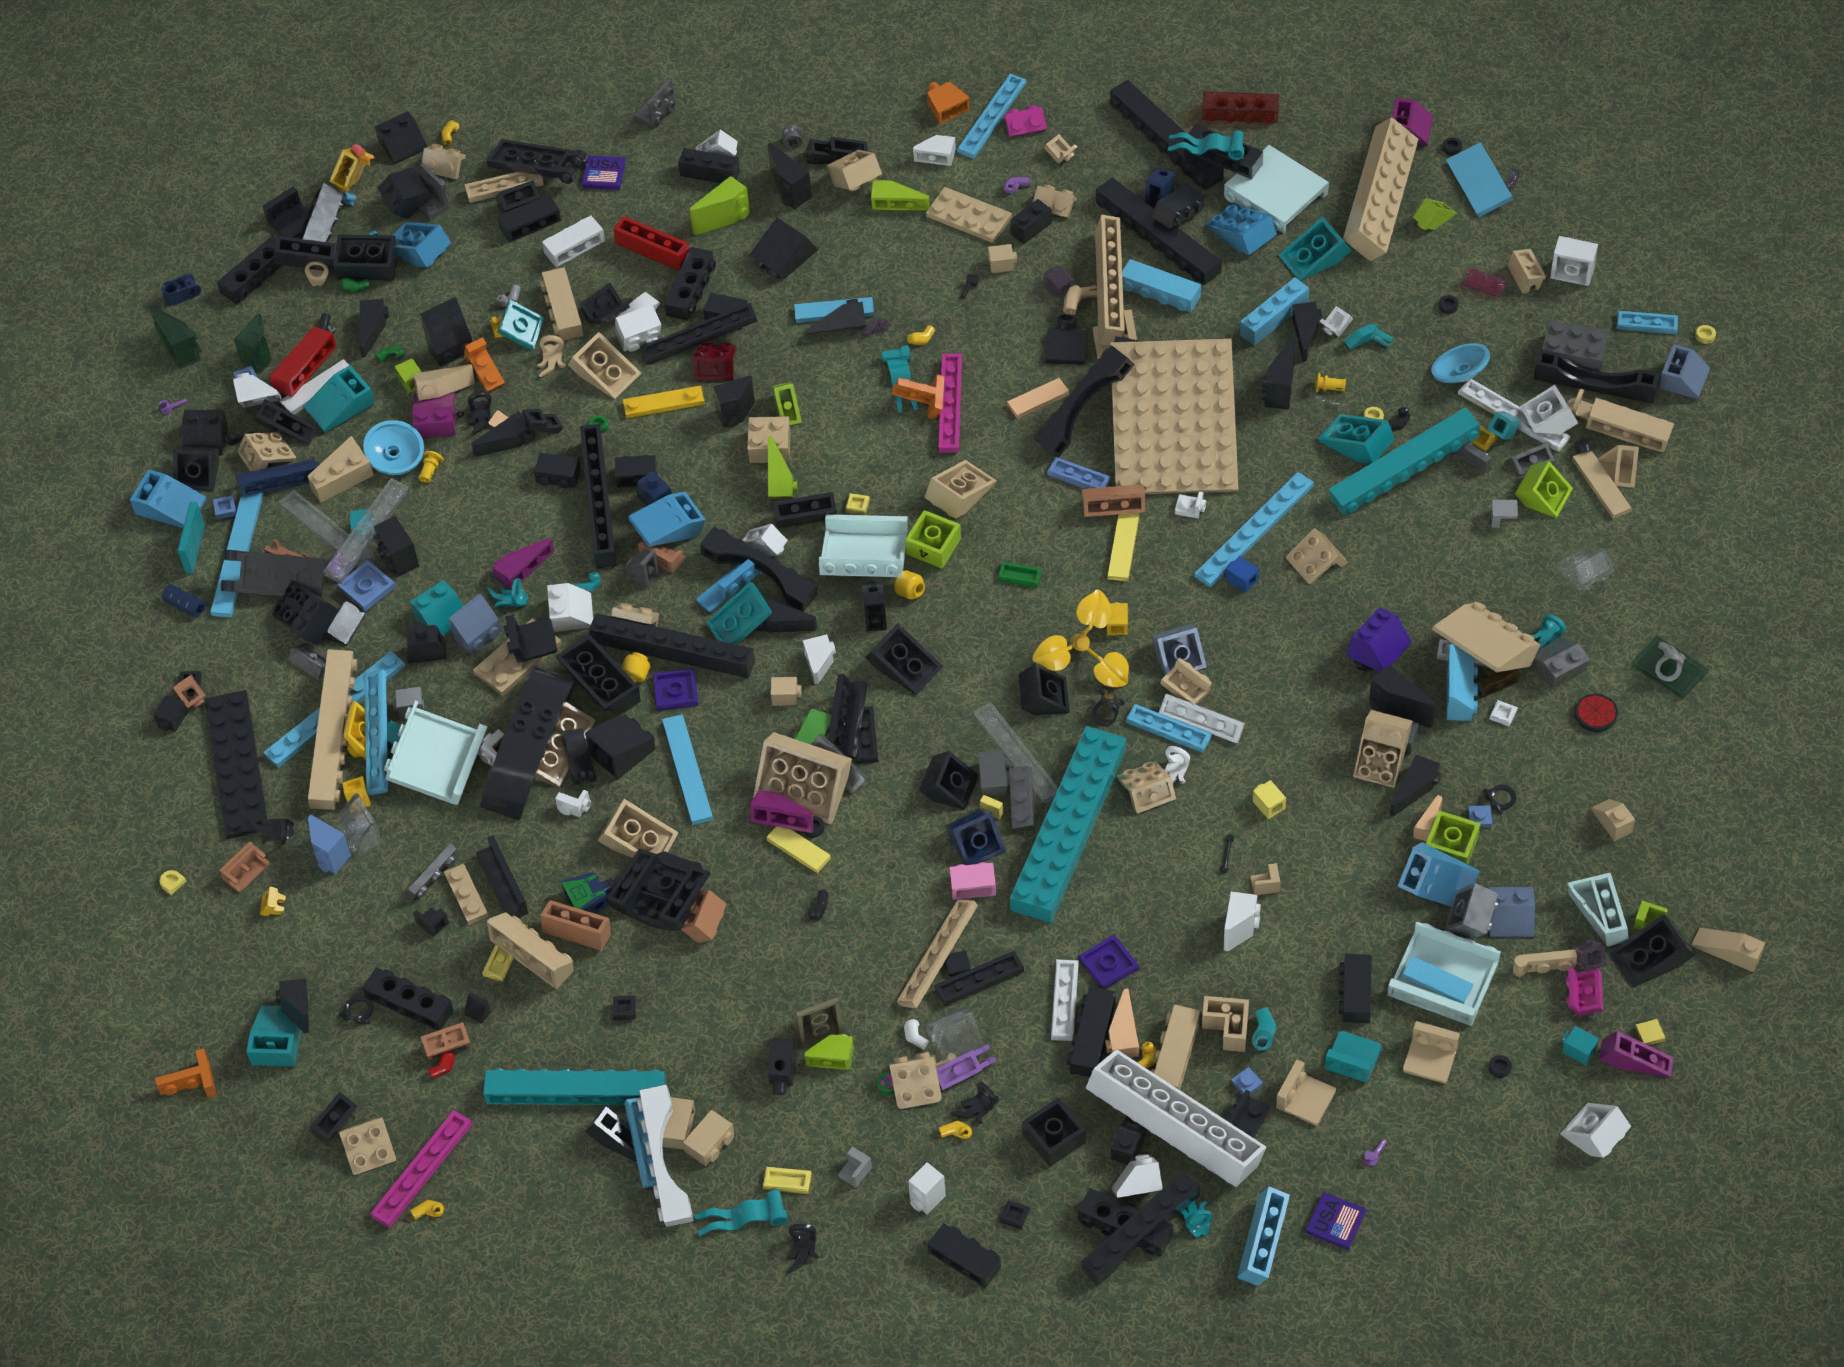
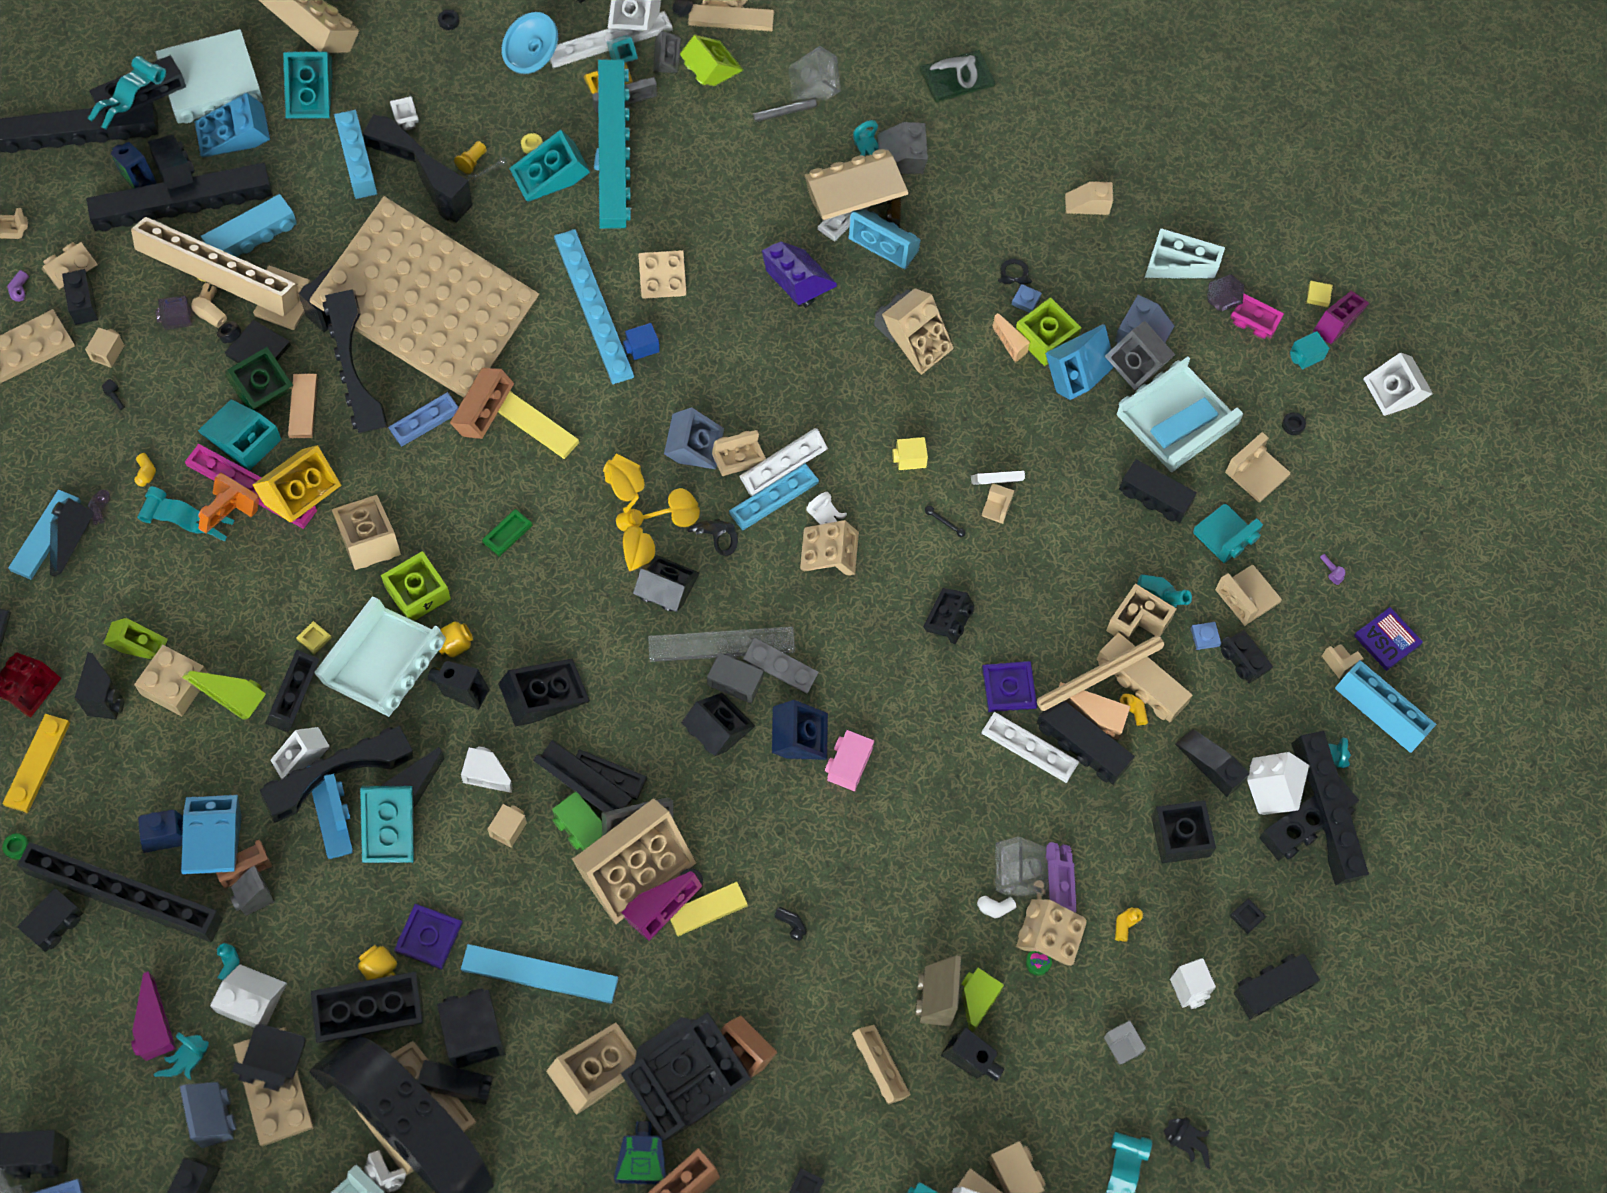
camera: 70 degrees left, 10 degrees up
(436, 606) = (153, 1144): teal slope -> none
(570, 805) = (513, 1123): white bracket -> none
(633, 468) = (112, 836): black brick -> none
(641, 615) = (312, 930): tan bracket -> none
(672, 645) = (373, 912): black brick -> none
(742, 1012) = (881, 1064): none -> tan plate
(787, 1180) = (1101, 1118): light yellow tile -> none
(937, 953) = (915, 837): tan tile -> none
(957, 963) = (934, 824): black tile -> none
(966, 426) = (297, 484): none -> yellow slope
(979, 978) = (965, 812): black plate -> none
(979, 1104) = (1109, 884): black piece -> none
(986, 374) = (241, 433): none -> teal slope
(992, 805) = (773, 698): light yellow tile -> none
(1034, 357) = (259, 380): none -> dark green brick
(1068, 824) = (837, 639): teal brick -> none
(1143, 893) = (950, 614): none -> black bracket
(1152, 1010) = (1100, 673): none -> tan axle
(1176, 1118) = (1227, 714): white brick -> none
(1190, 506) = (530, 342): white bracket -> none
(1240, 107) = (85, 51): clear red brick -> none
(1241, 919) = (1037, 546): white slope -> none
(1284, 865) = (1000, 477): none -> white tile
(1293, 1188) = (1340, 660): none -> tan panel
(1367, 334) = (437, 97): teal arm -> none
(1400, 698) = (872, 286): black slope -> none
(1401, 419) = (551, 123): black arm -> none
(1417, 782) = (962, 323): black slope -> none
(1503, 510) = (714, 102): light grey panel -> none
(1503, 713) = (927, 222): white tile -> none
(1538, 564) = (808, 104): none -> flat silver bar
(1544, 962) = (1210, 333): tan plate -> none
(1596, 712) = (970, 154): tile -> none
(1647, 914) = (1206, 230): lime panel -> none
(1652, 951) = (1245, 245): black slope -> none
(1730, 946) = (1269, 188): tan slope -> none

